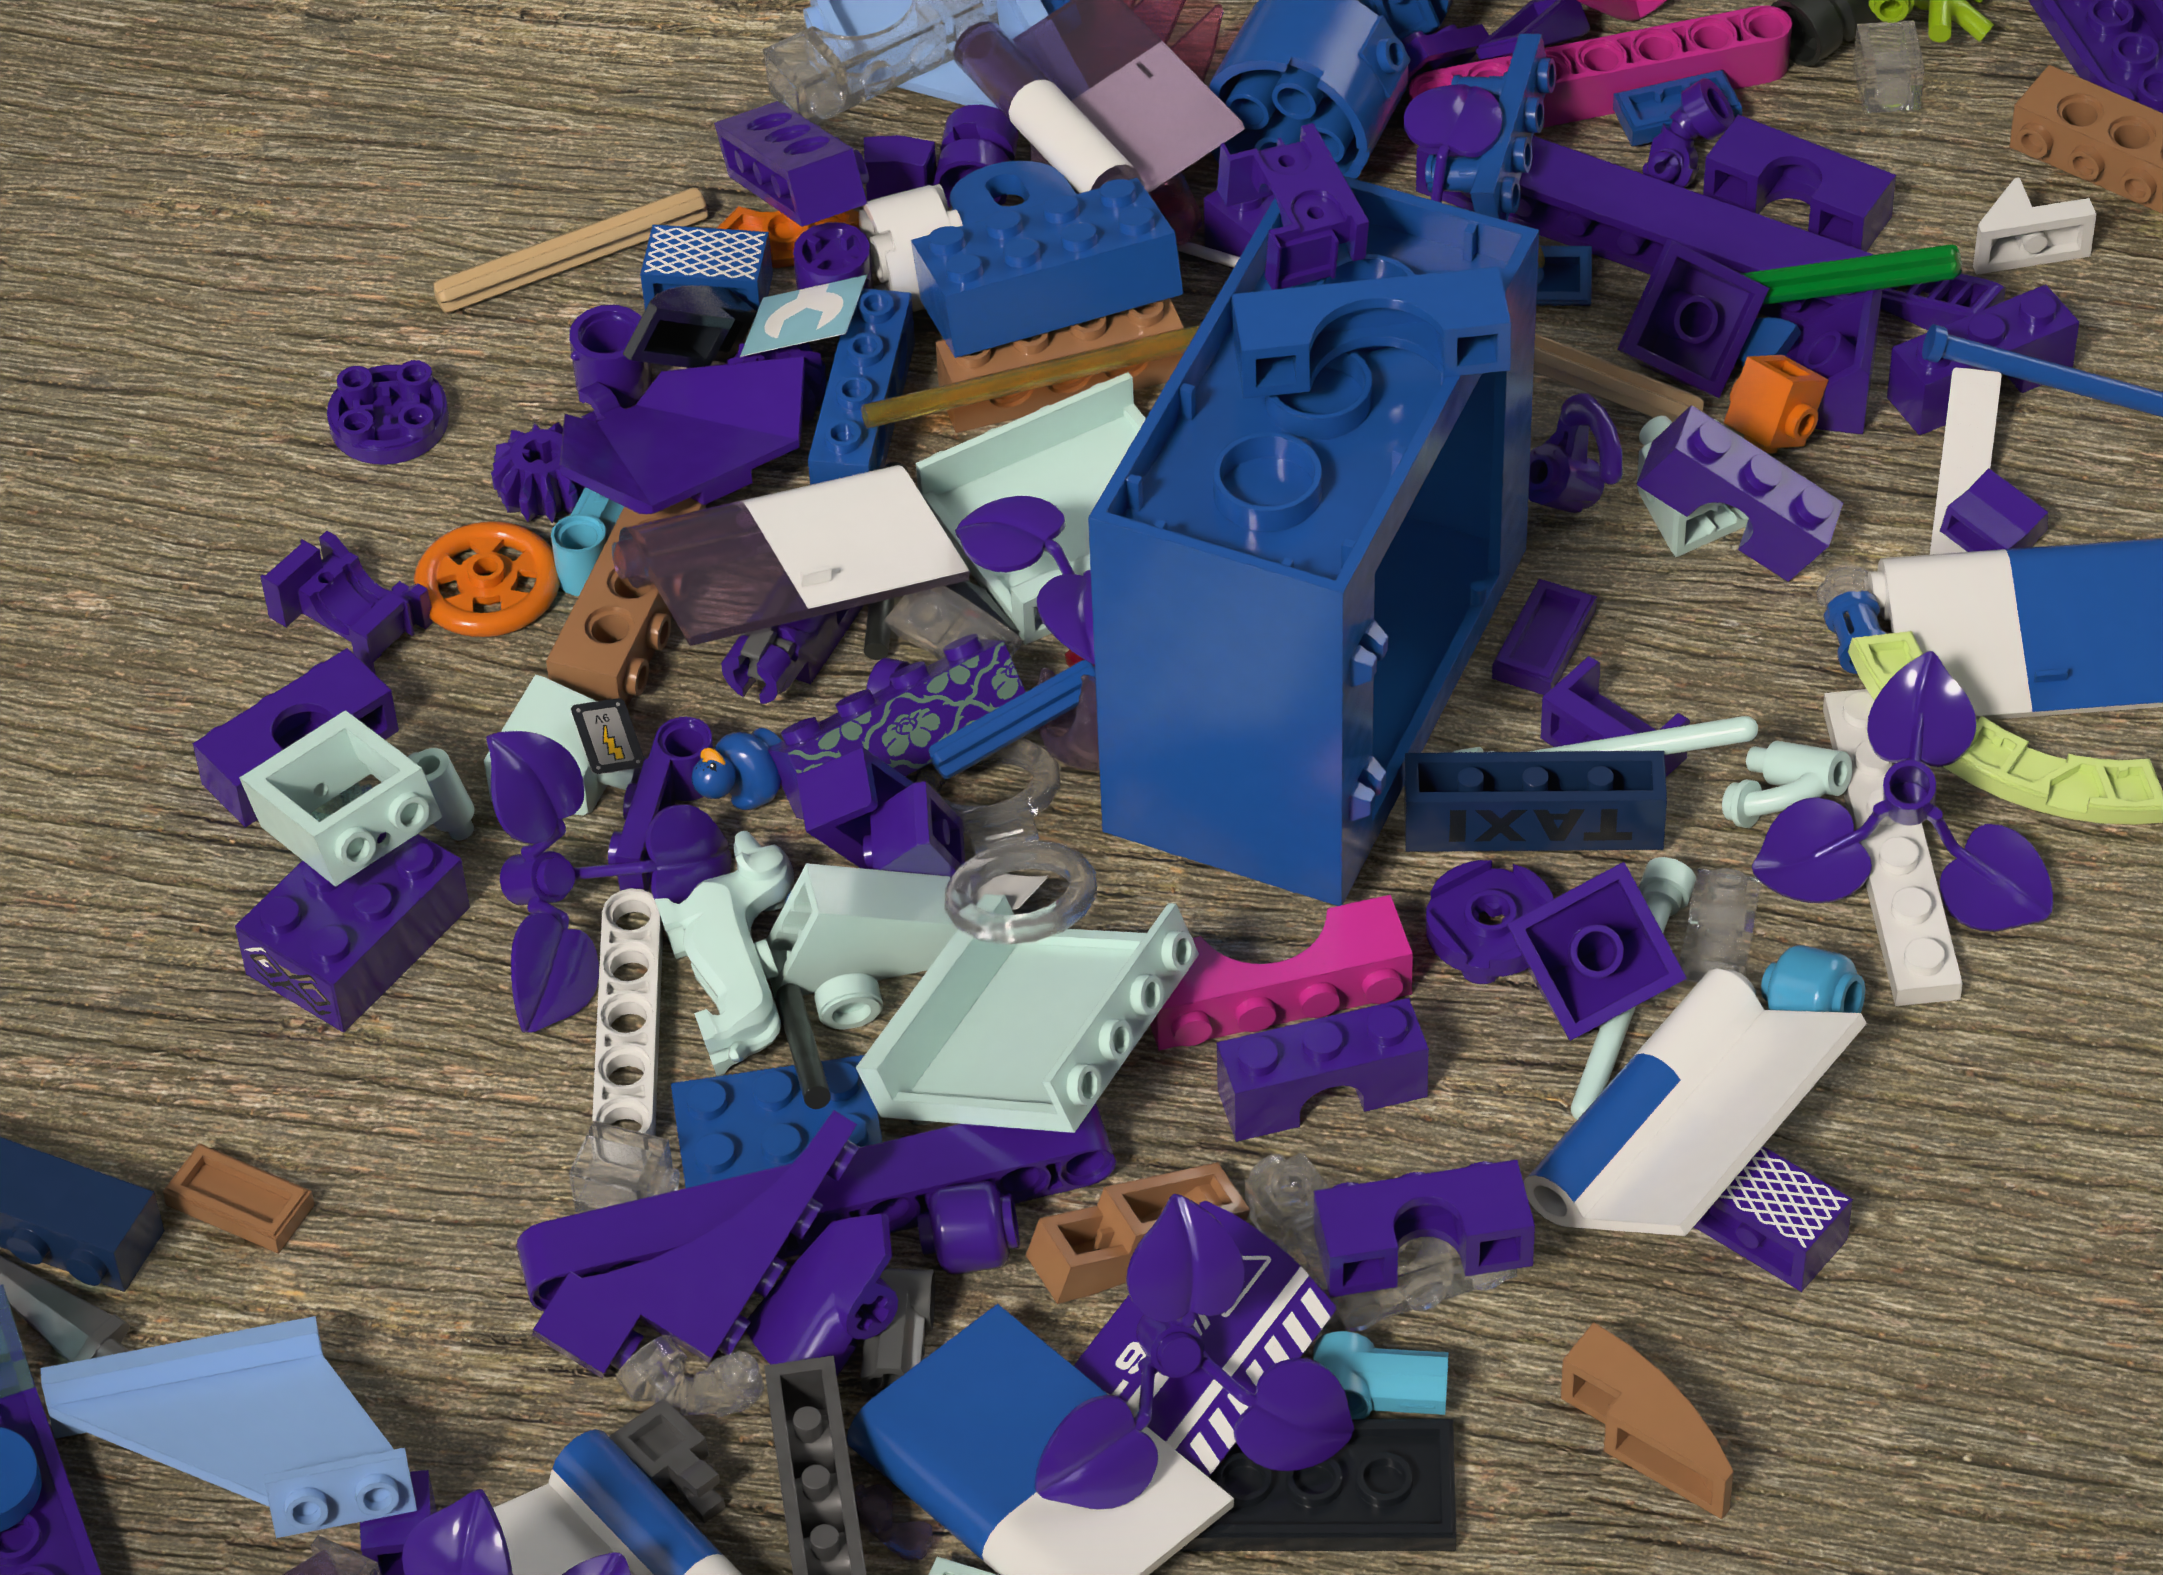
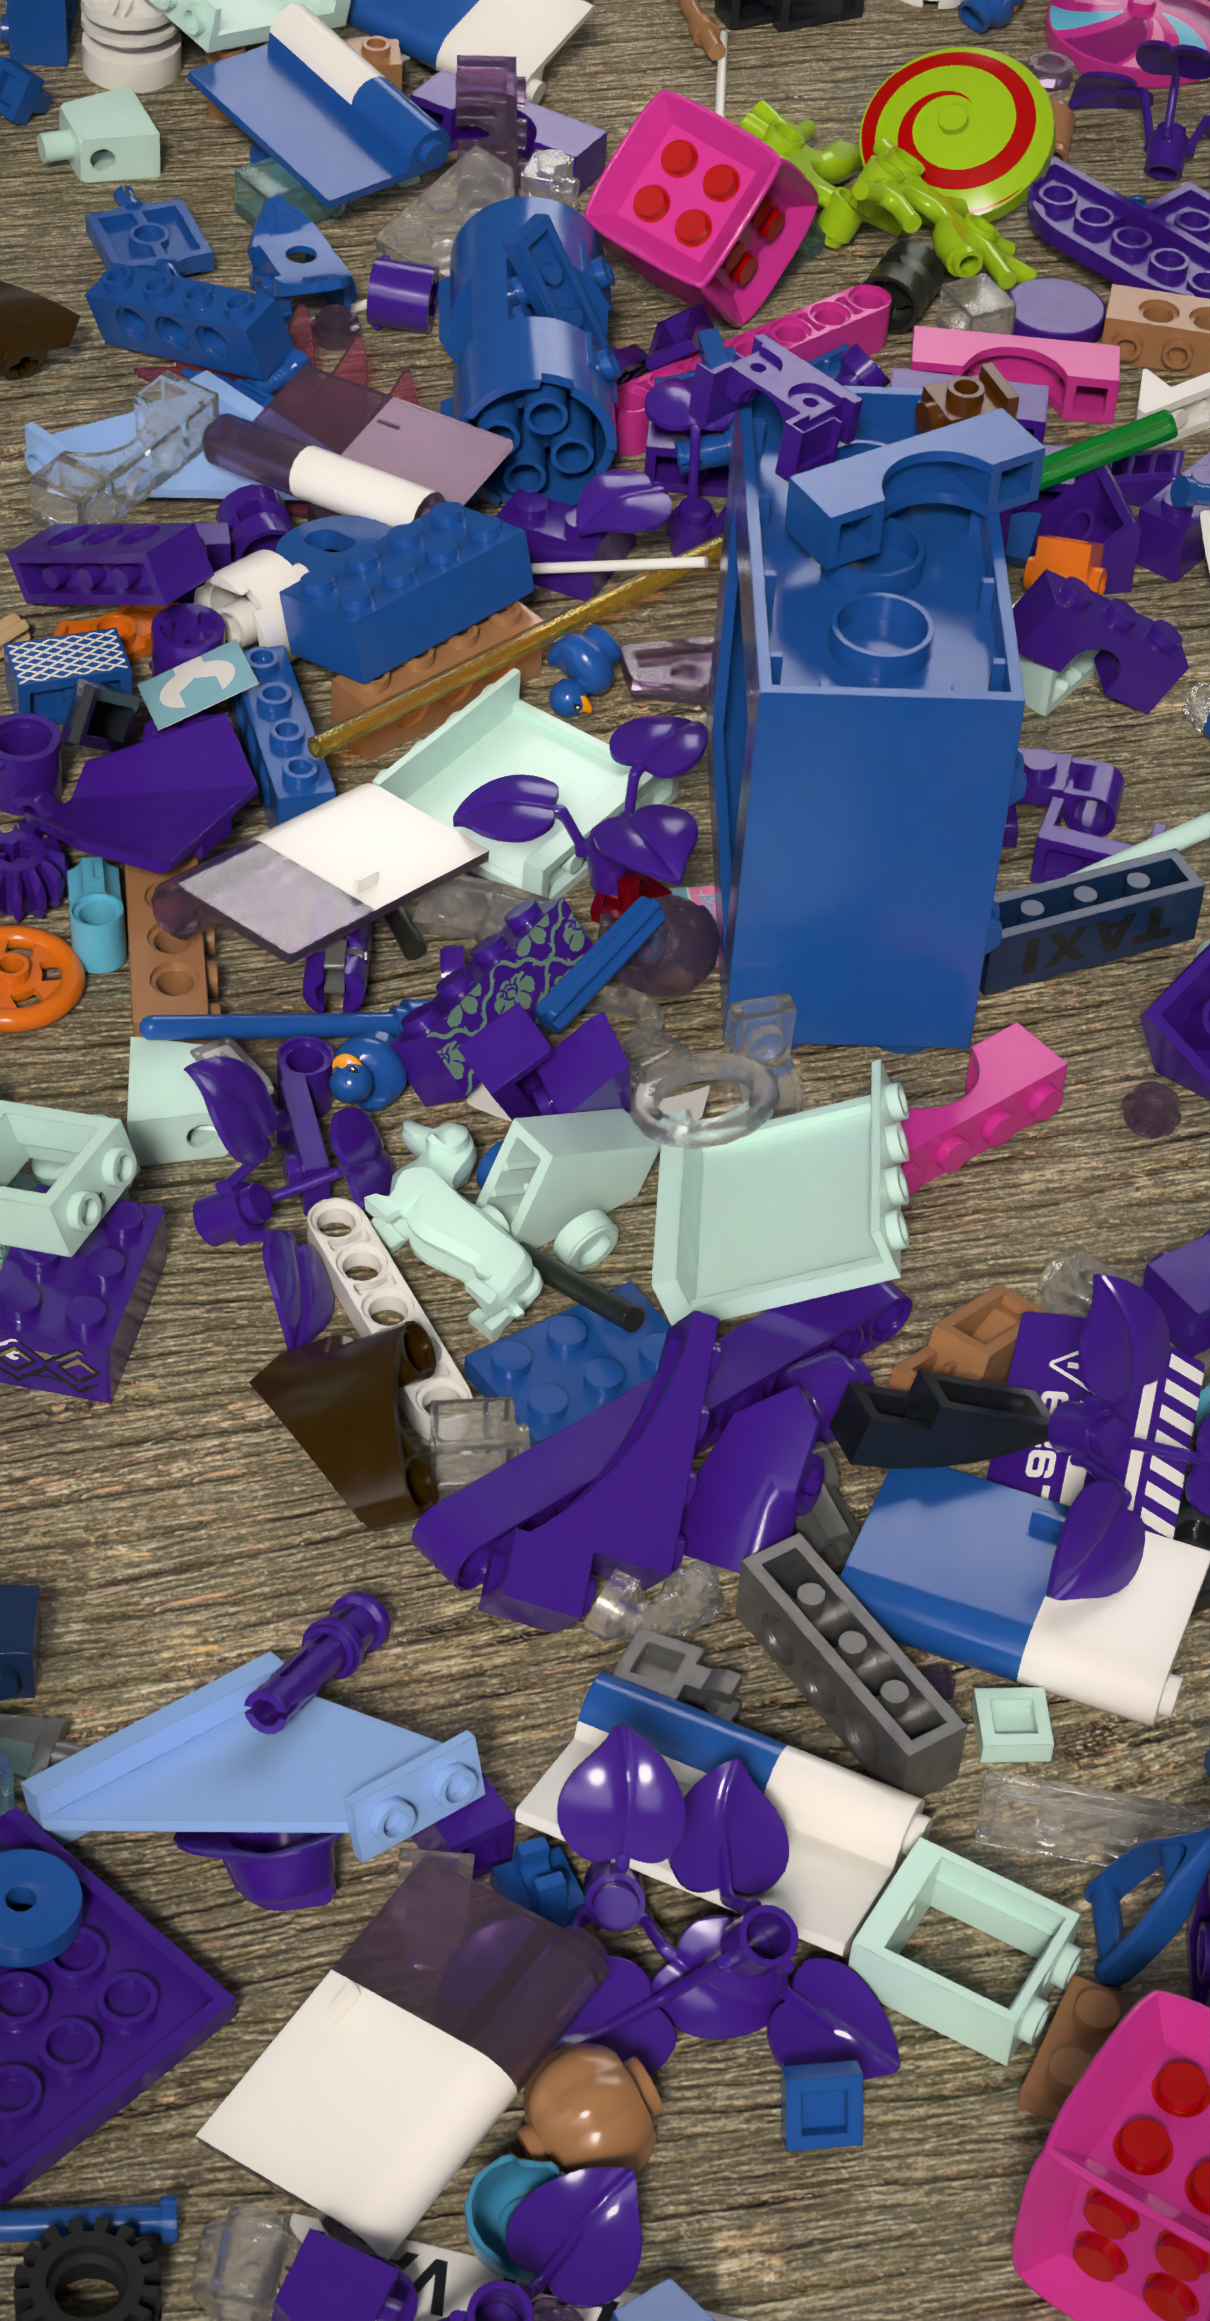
camera: 30 degrees left, 5 degrees down
(211, 1515) = (272, 1868): none -> dark purple piece
(238, 1198) = (104, 1577): medium nougat tile -> none
(371, 1332) = (329, 1650): none -> dark purple pin
(504, 1103) = (344, 1413): none -> dark brown panel
(676, 697) = (275, 1024): none -> blue piece
(1036, 1289) = (937, 1422): none -> black slope
(1117, 848) = (764, 1032): none -> clear plate
(1275, 1071) = (1005, 1197): dark purple arch -> none
(1453, 918) = (1101, 1055): dark purple plate -> none
(1482, 245) = (965, 398): none -> reddish brown brick
(1489, 1025) = (1151, 1110): none -> clear purple plate
(1638, 653) = (1088, 786): none -> dark purple plate
(1951, 165) = (1079, 374): none -> dark pink arch
(1978, 82) = (1057, 310): none -> tile

